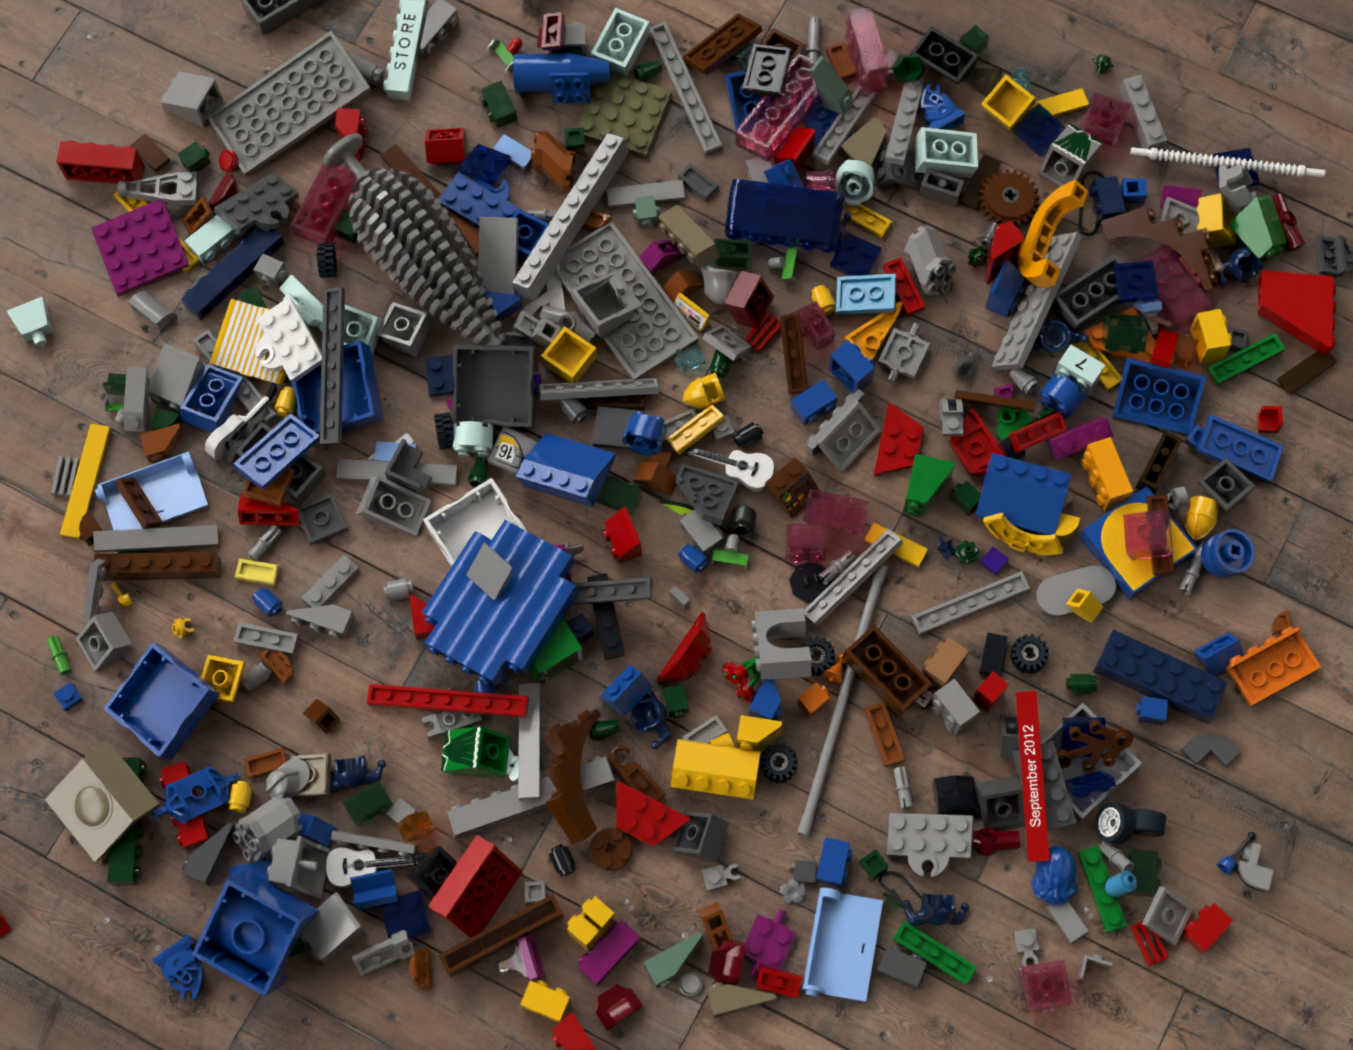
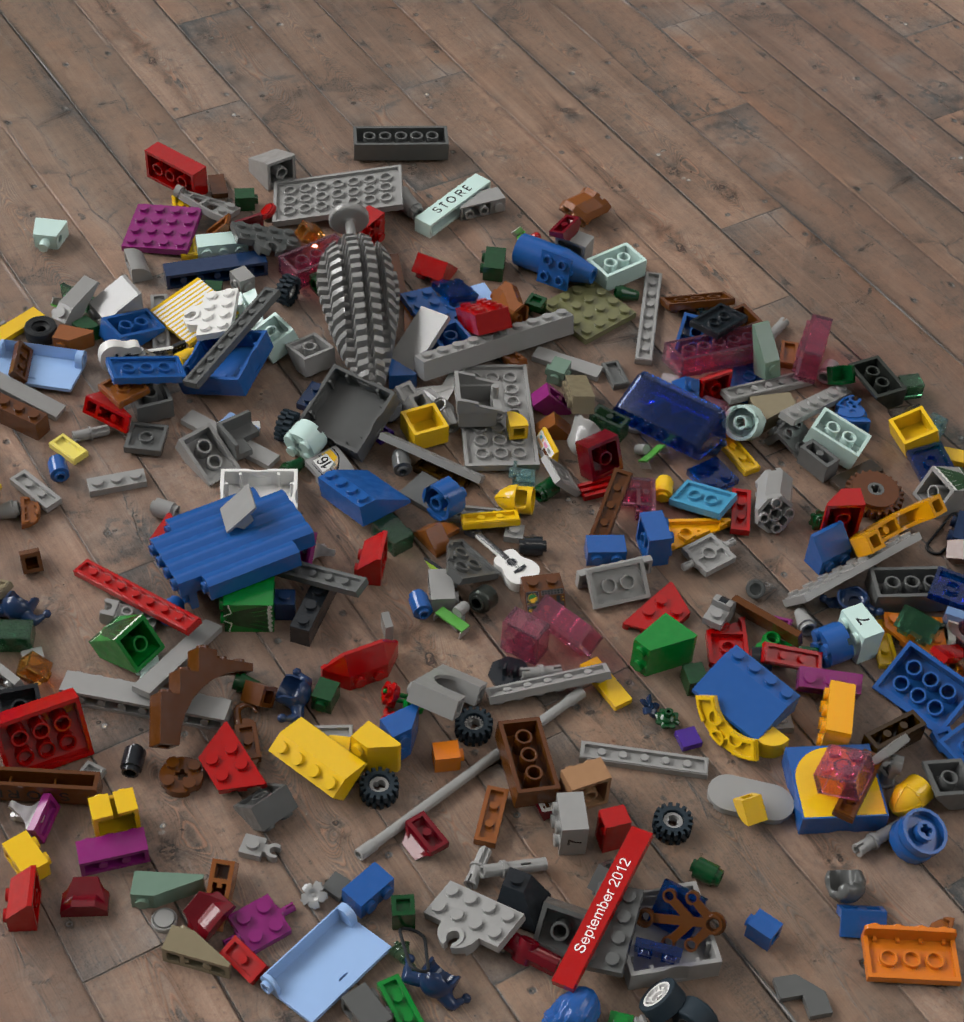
camera: 25 degrees right, 25 degrees down
(118, 439) = (40, 323): none -> black tyre
(293, 170) = (308, 232): none -> clear orange brick
(327, 618) = (93, 500): light grey slope -> none
(544, 193) = (484, 316): none -> red brick
(622, 735) = (259, 694): none -> reddish brown brick
(626, 691) = (286, 659): blue slope -> none
(654, 308) = (516, 426): none -> yellow brick
(834, 673) = (481, 746): orange piece -> none
(844, 788) = (423, 837): none -> dark red slope
(926, 778) = (502, 867): none -> light grey pin
(993, 654) = (641, 806): black tile -> none
(1160, 676) = (780, 892): dark blue brick -> none
(1171, 488) = (890, 749): none -> light grey tile
(1194, 632) = (845, 885): none -> dark grey hair

